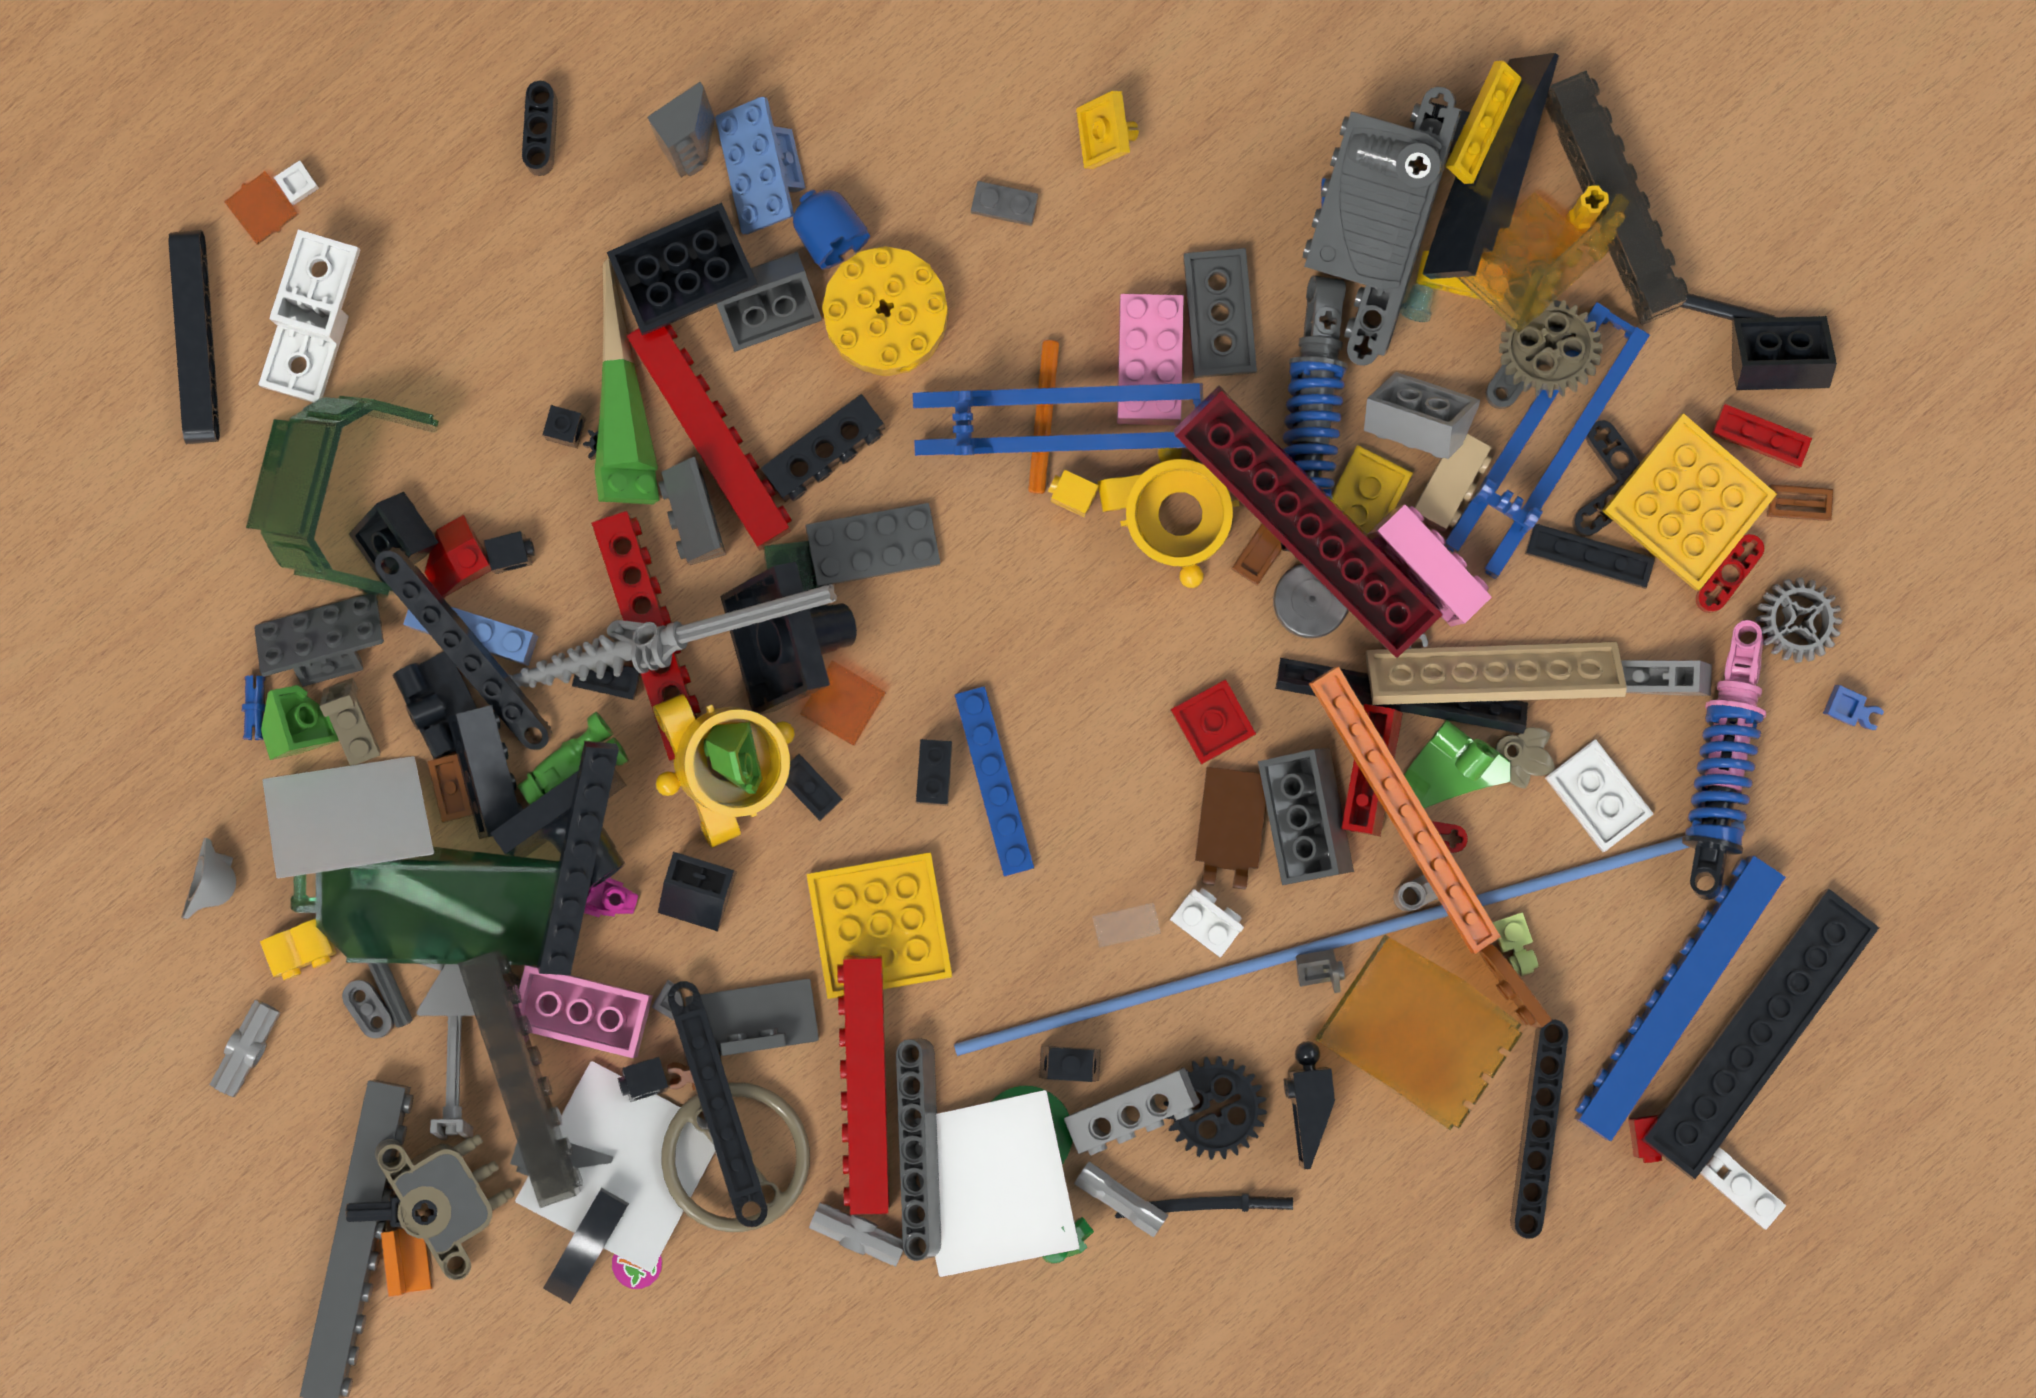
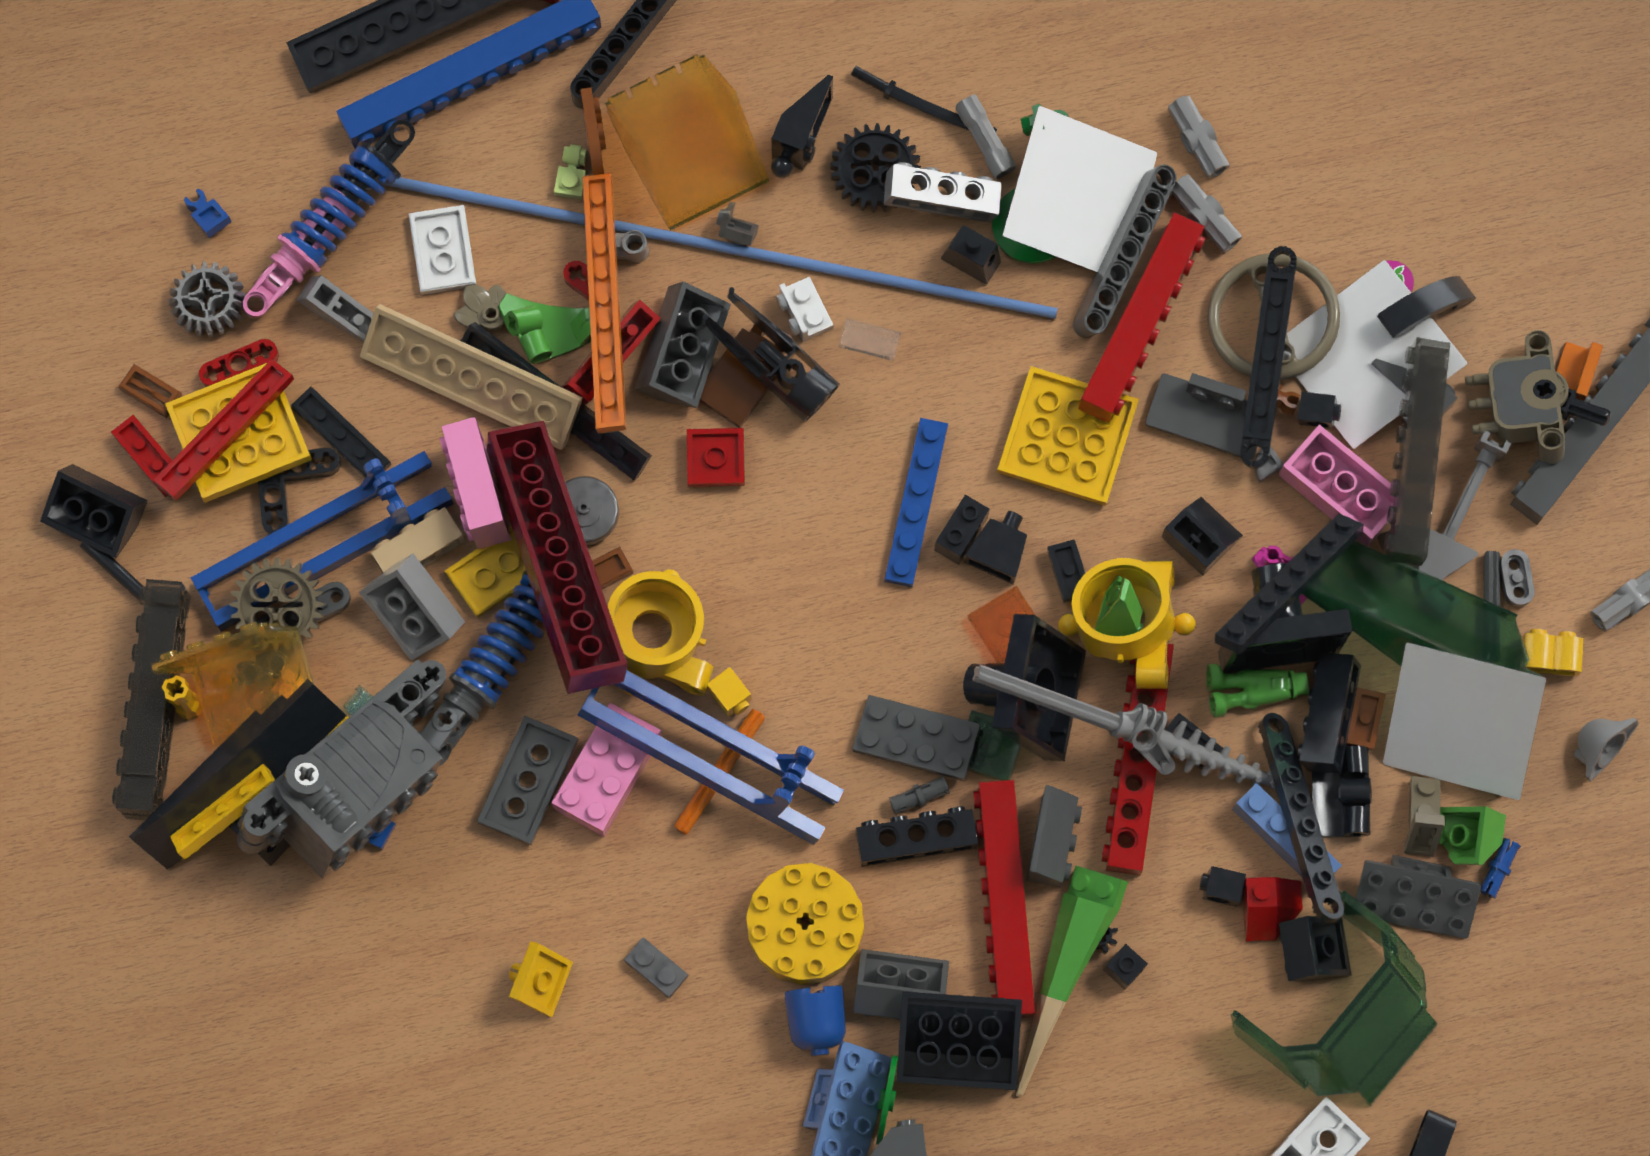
camera: 155 degrees left, 10 degrees down
(721, 179) = (887, 1099): none -> green piece
(842, 491) = (919, 795): none -> dark grey pin
(888, 774) = (999, 548): none -> black torso
(906, 1315) = (1198, 136): none -> light grey piece
(1155, 833) = (808, 390): none -> black piece
(1702, 490) = (223, 429): none -> red plate

